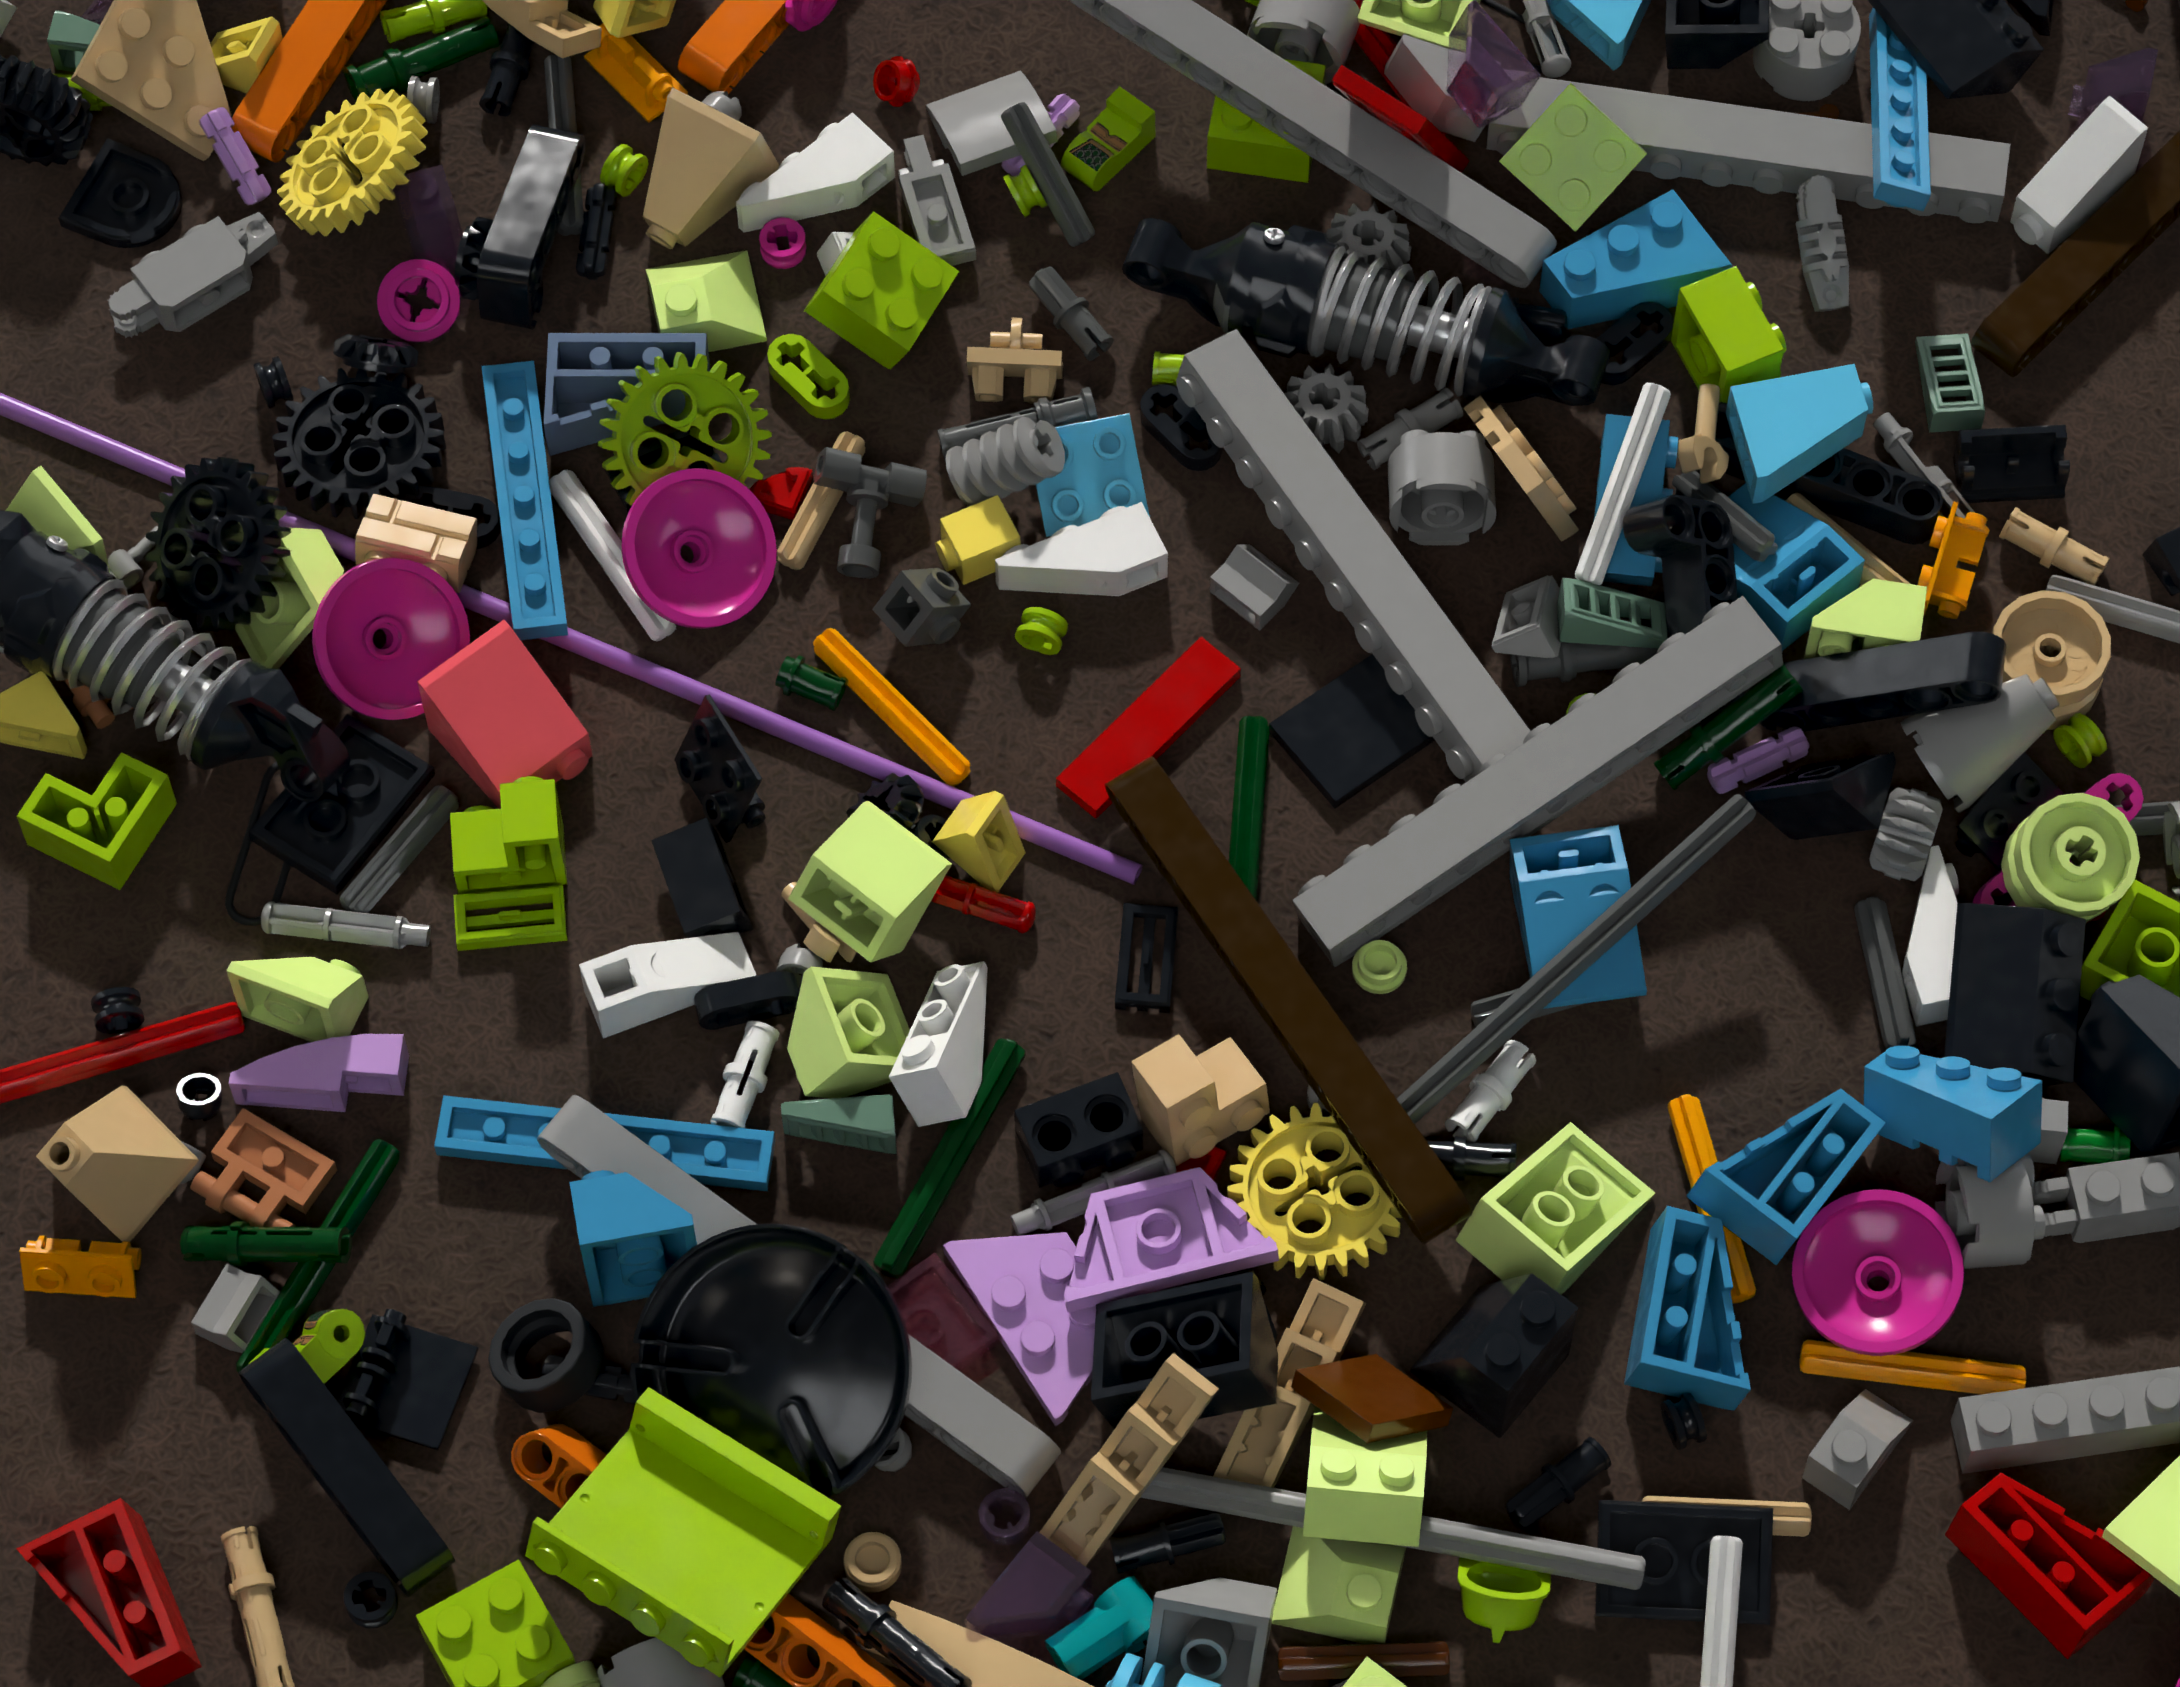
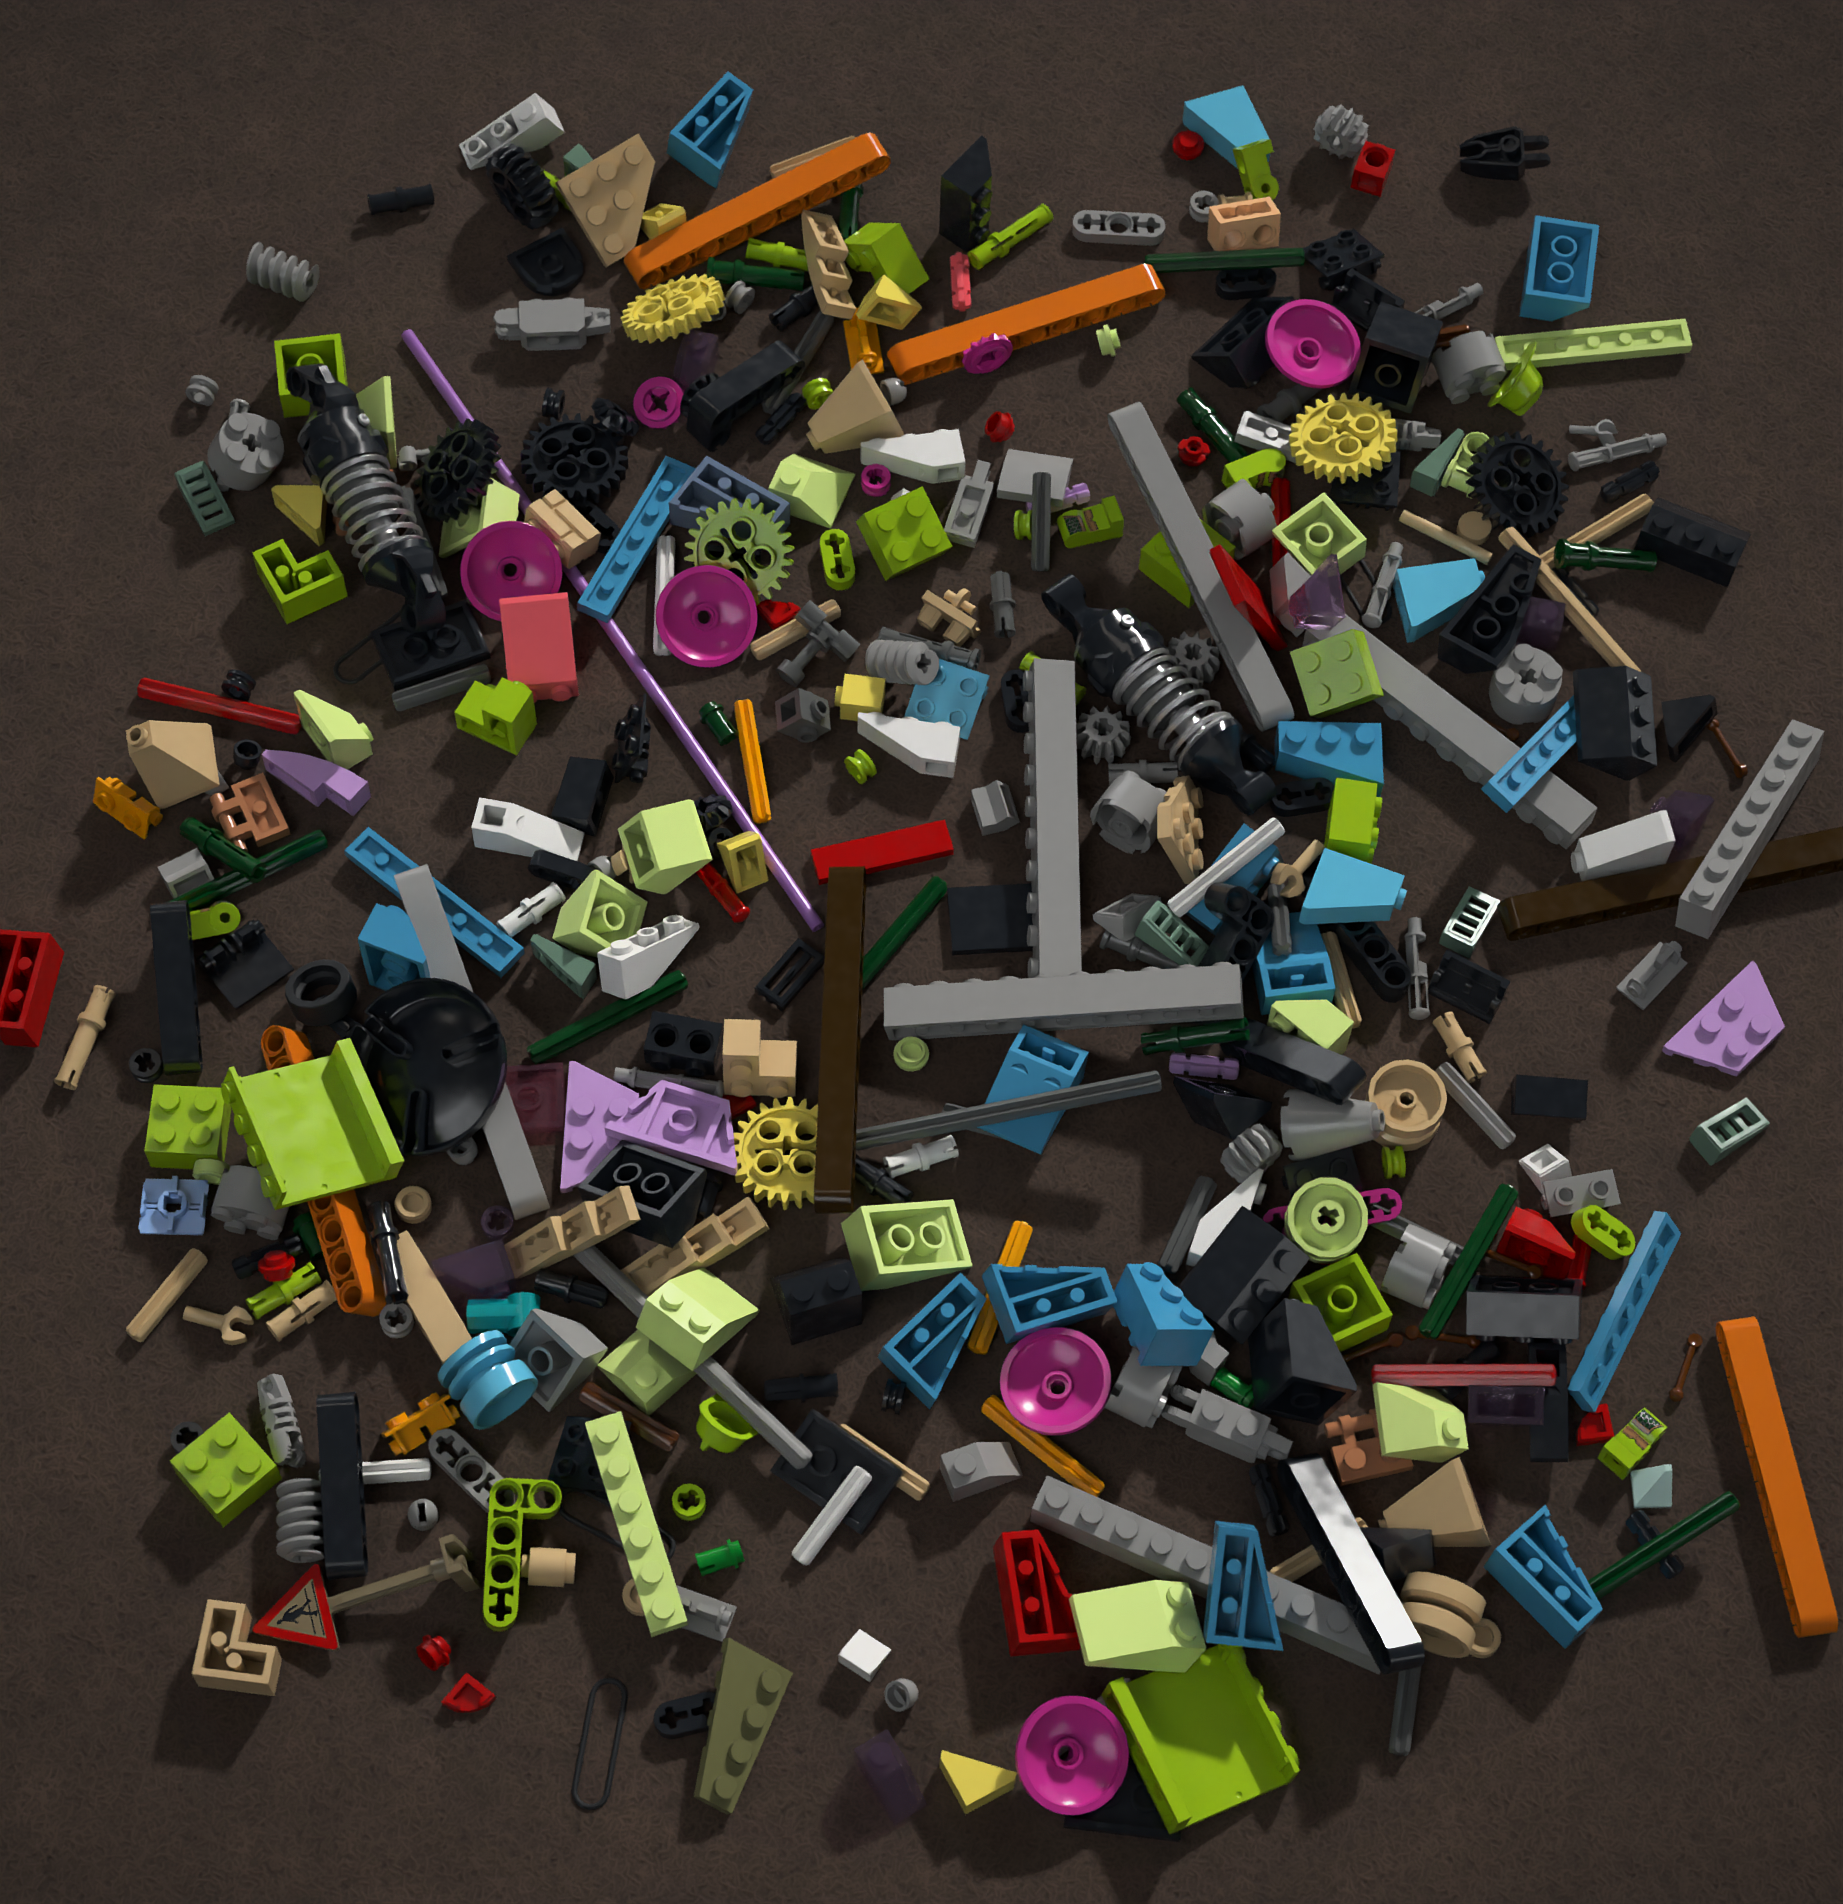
camera: 30 degrees right, 0 degrees up
(235, 156) = (618, 272): lavender axle -> none
(343, 926) = (384, 709): light grey piece -> none
(510, 936) = (467, 766): lime tile -> none
(1371, 1398) = (728, 1278): reddish brown tile -> none
(1822, 245) = (1448, 804): light grey hinge -> none
(1957, 541) = (1399, 1009): light orange hinge -> none

